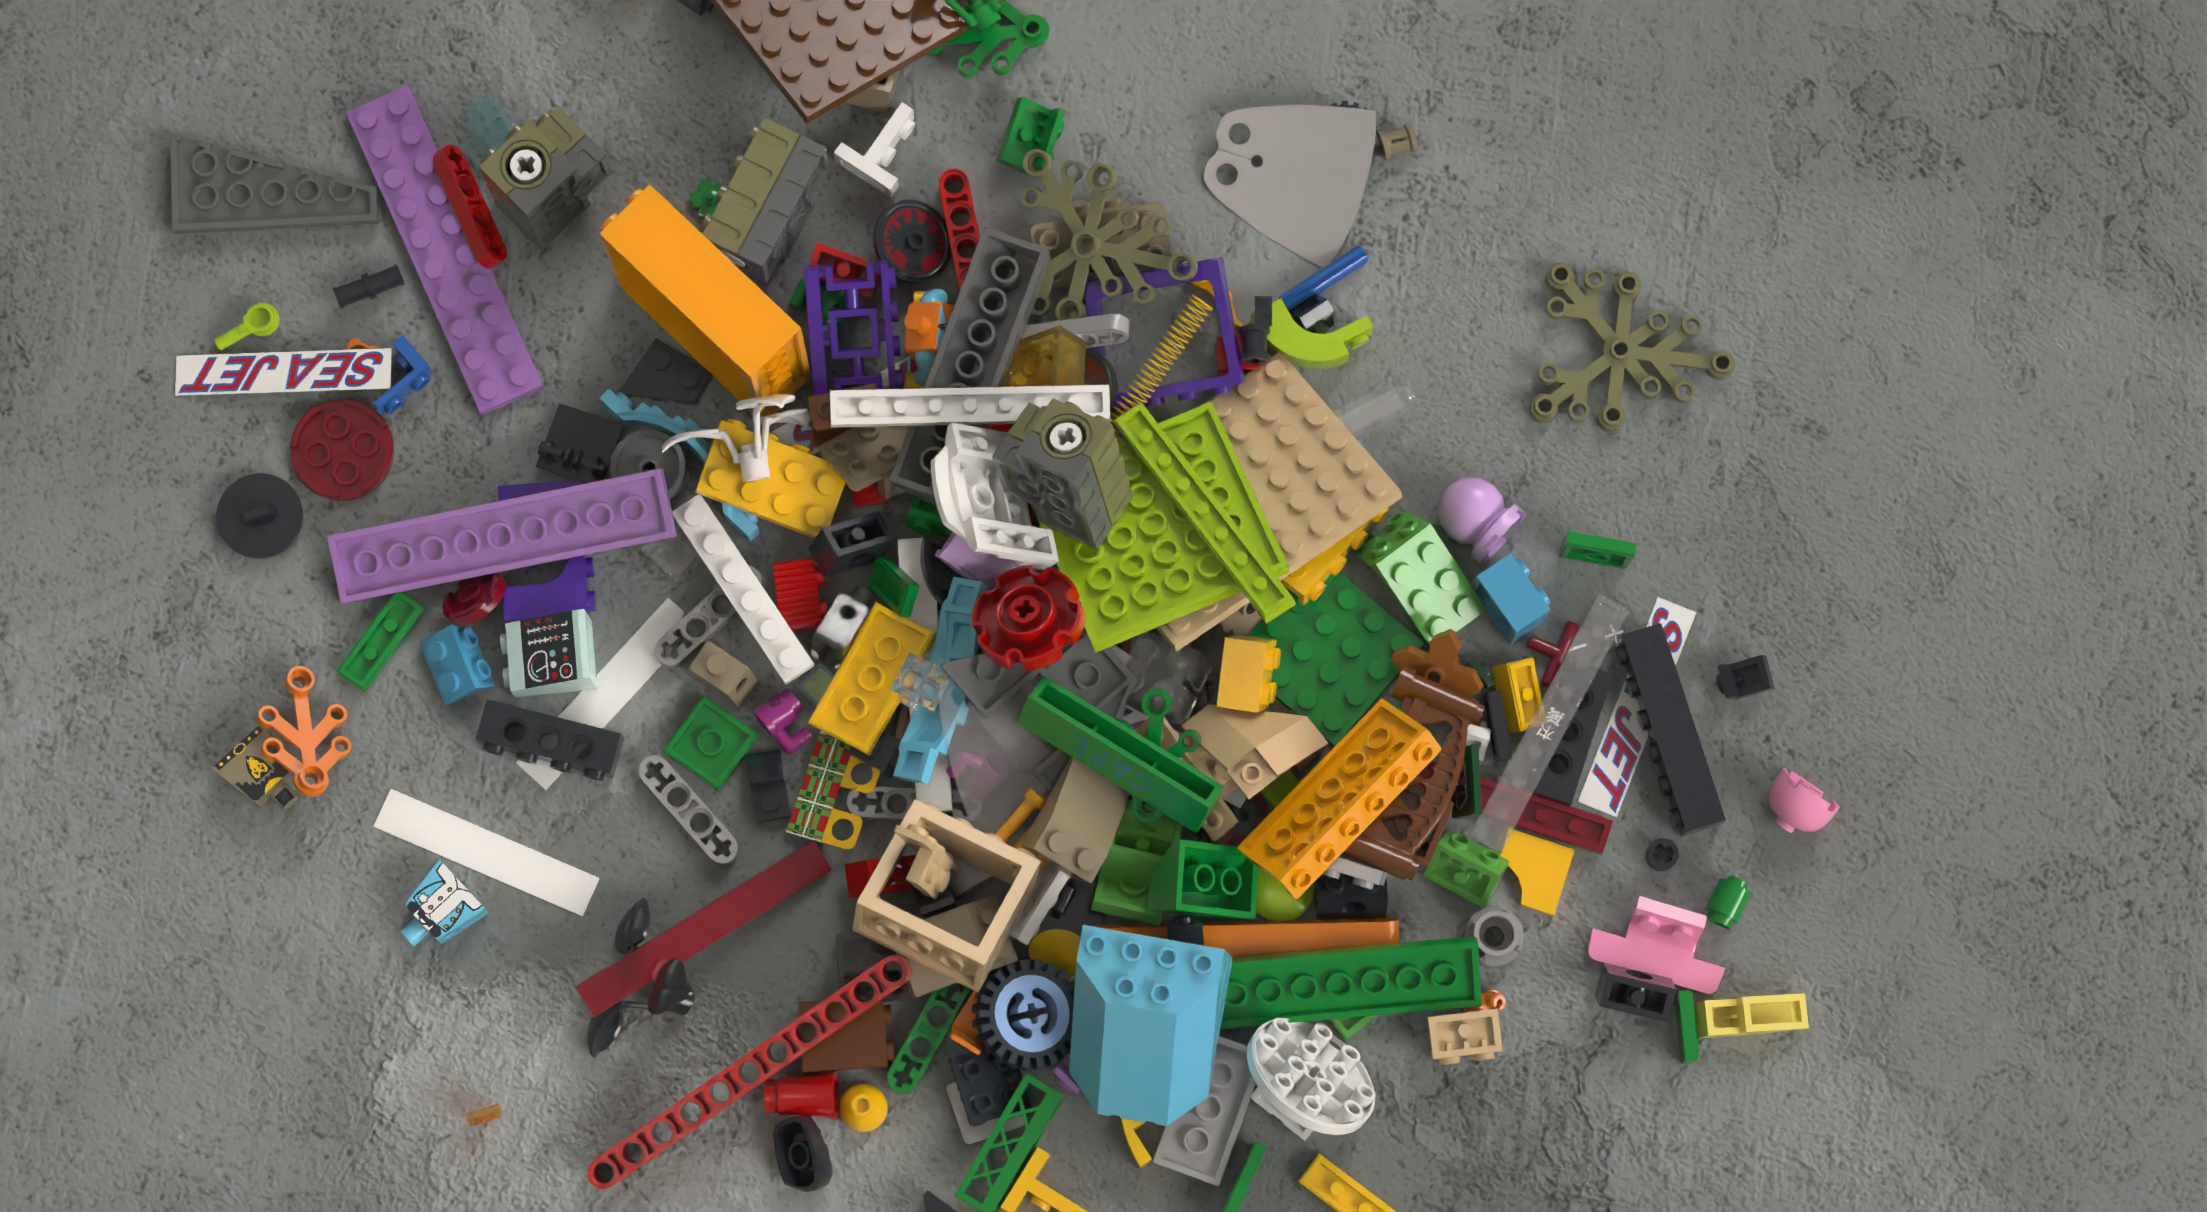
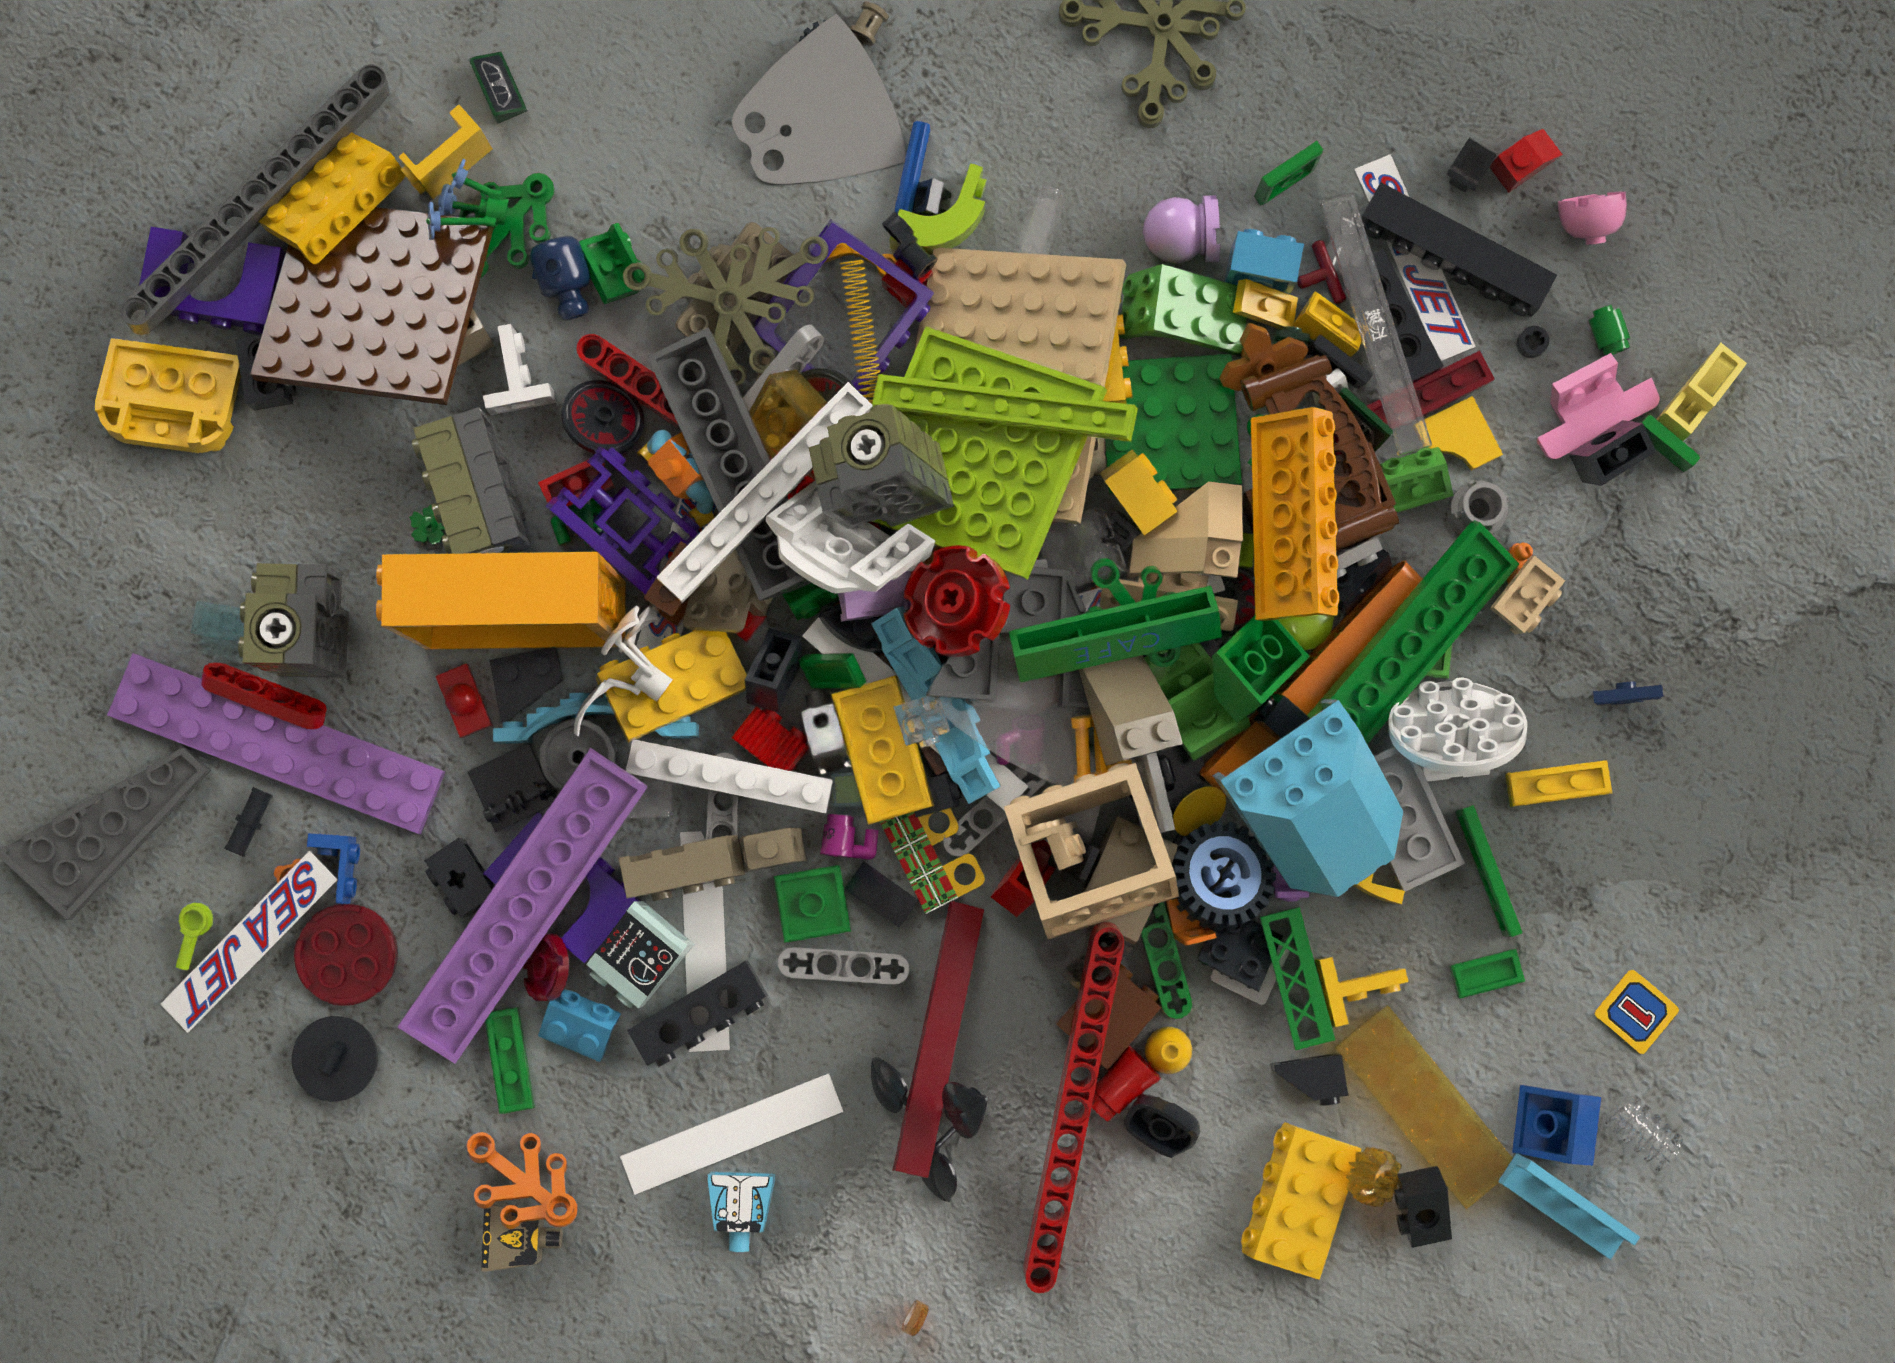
camera: 40 degrees left, 5 degrees up
(487, 456) = (461, 859): none -> black brick
(608, 349) = (464, 700): none -> red tile
(642, 622) = (682, 868): none -> dark tan wedge
(987, 108) = (562, 273): none -> dark blue piece
(1466, 1181) = (1627, 693): none -> dark blue plate
(1484, 630) = (1265, 304): none -> yellow plate
(1794, 713) = (1525, 159): none -> red slope

